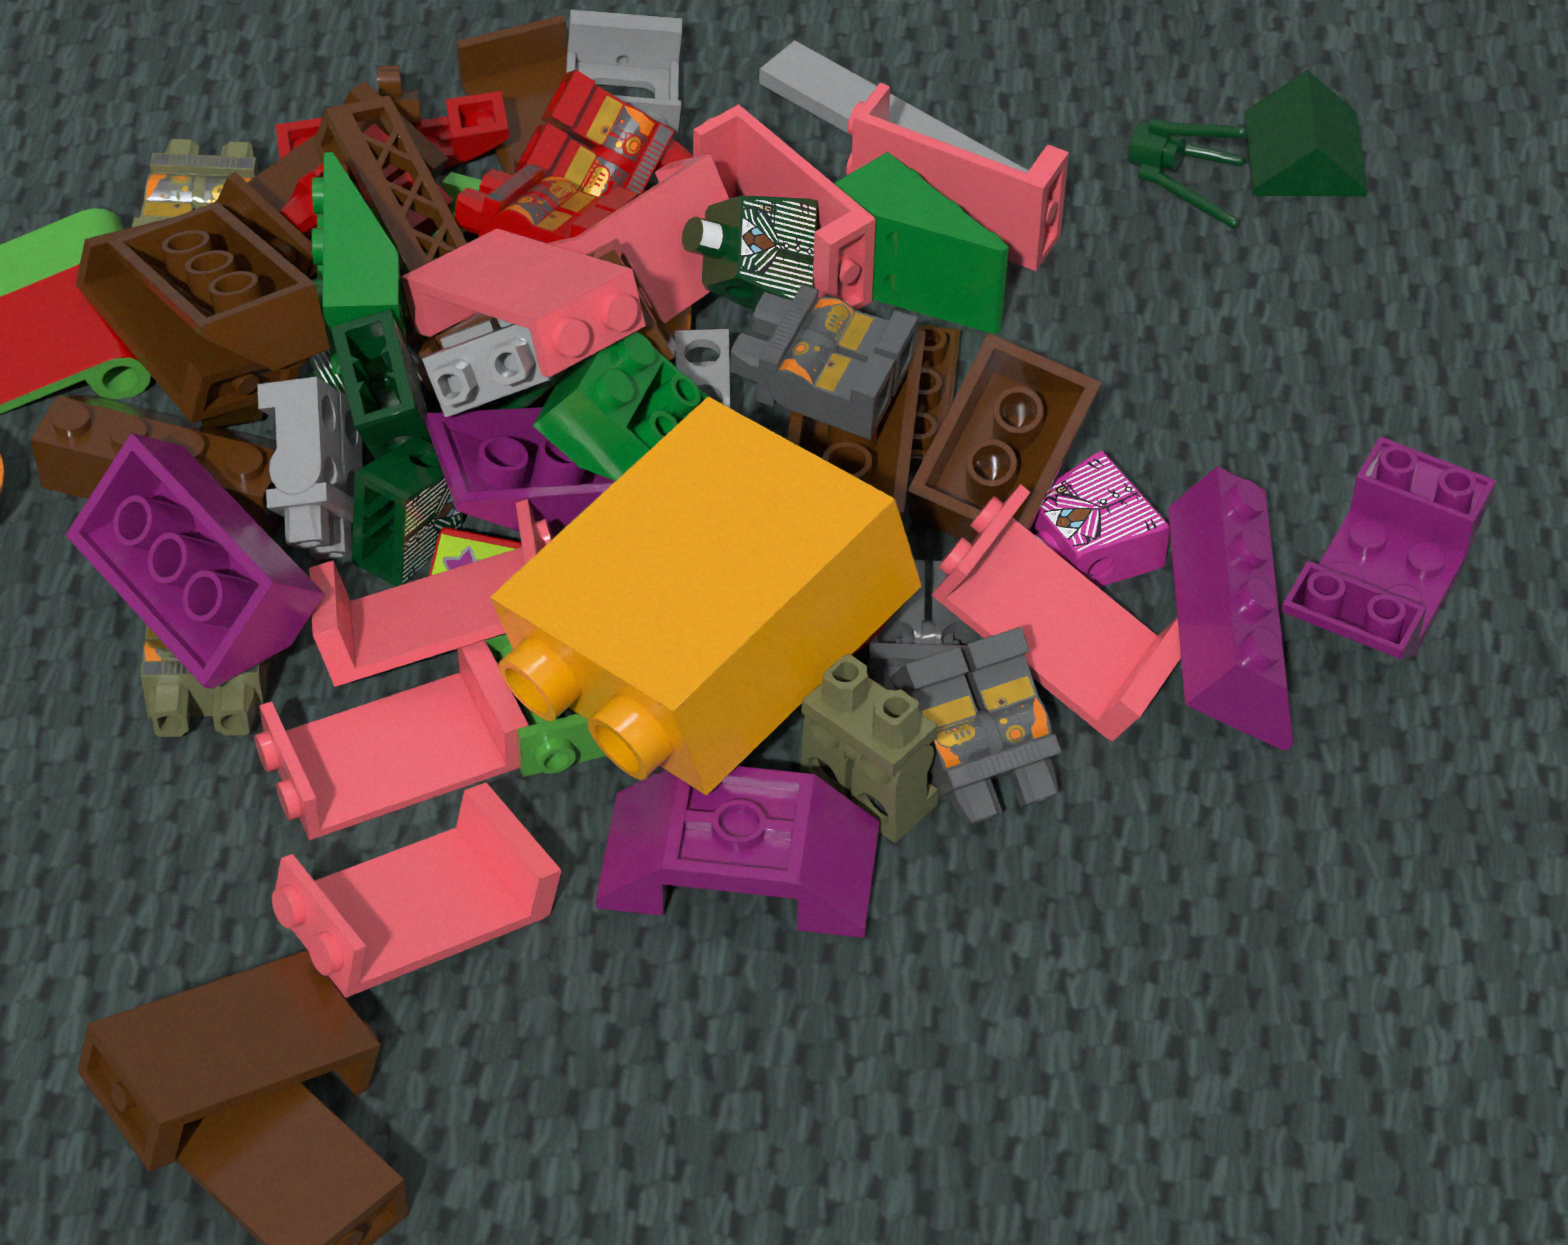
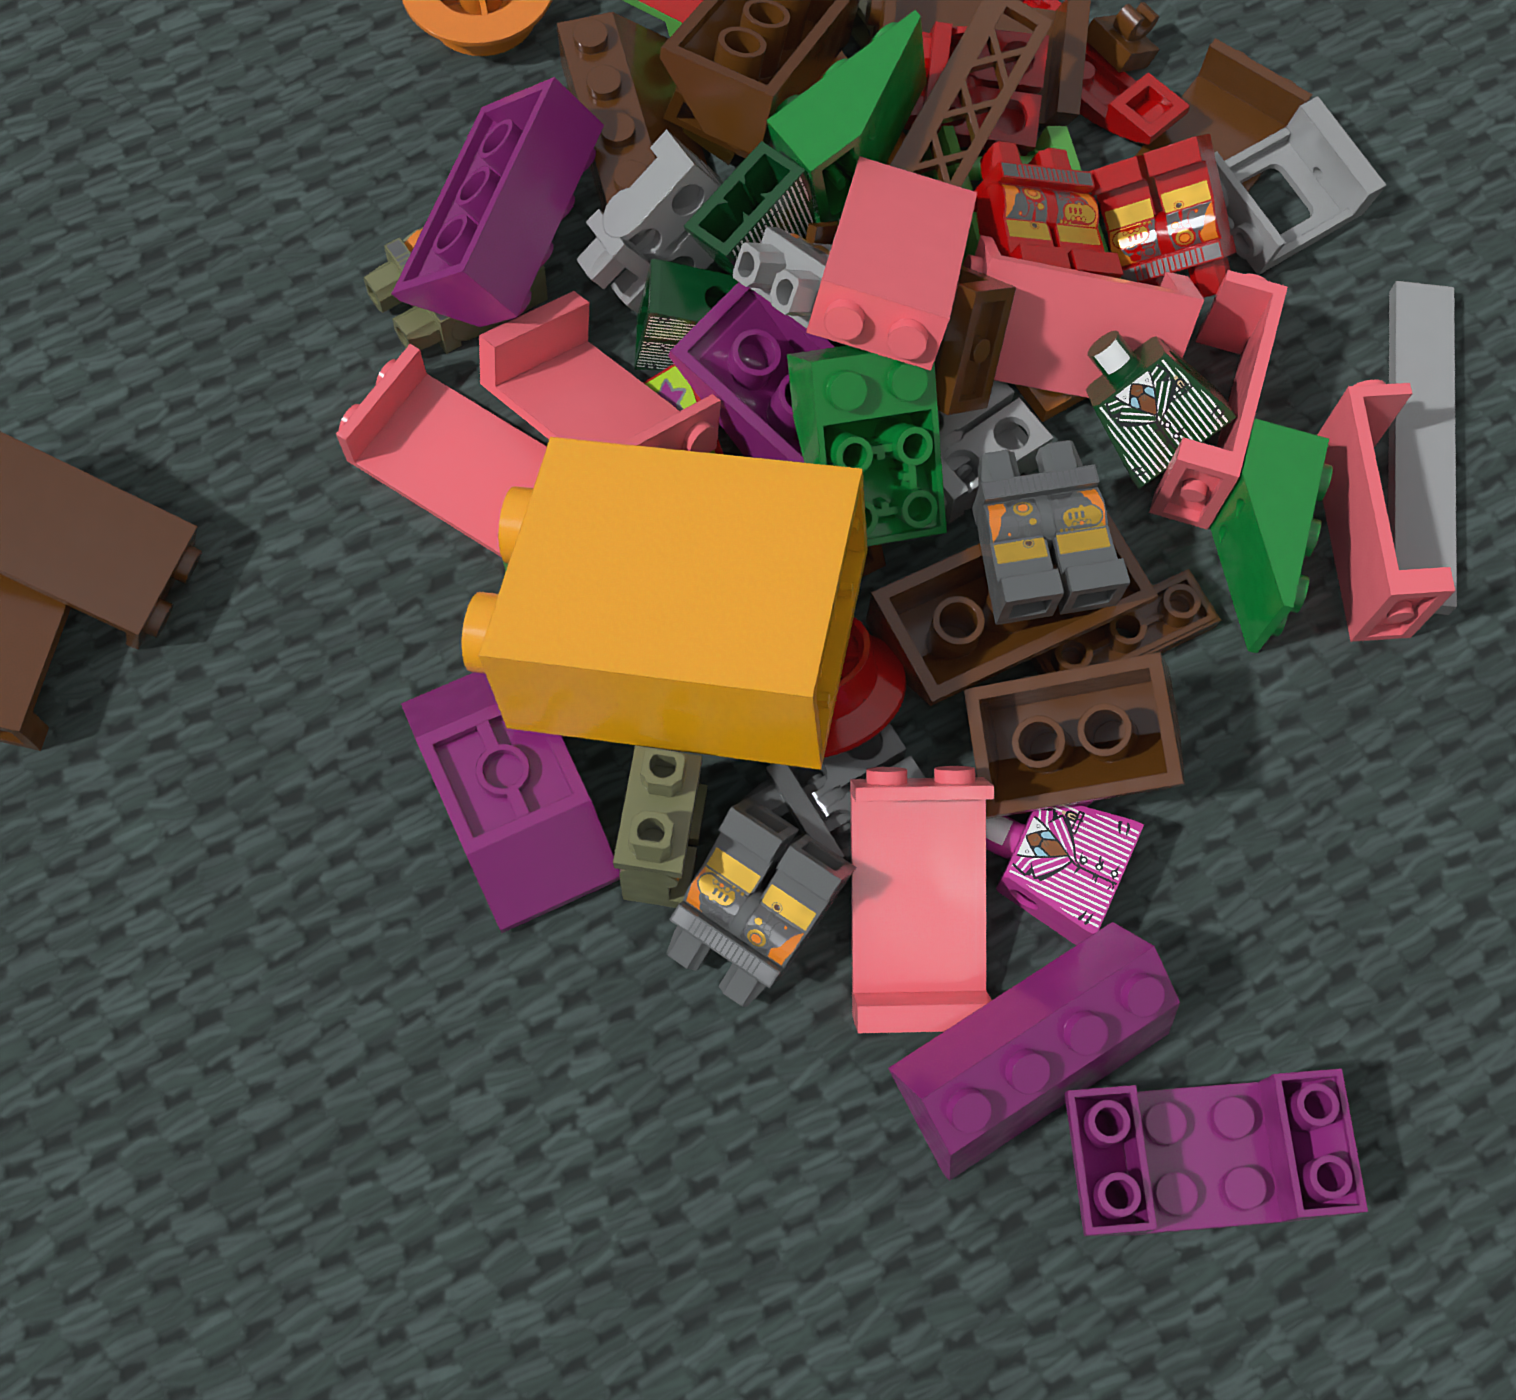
camera: 55 degrees right, 20 degrees up
(420, 898) = (298, 569): coral panel -> none

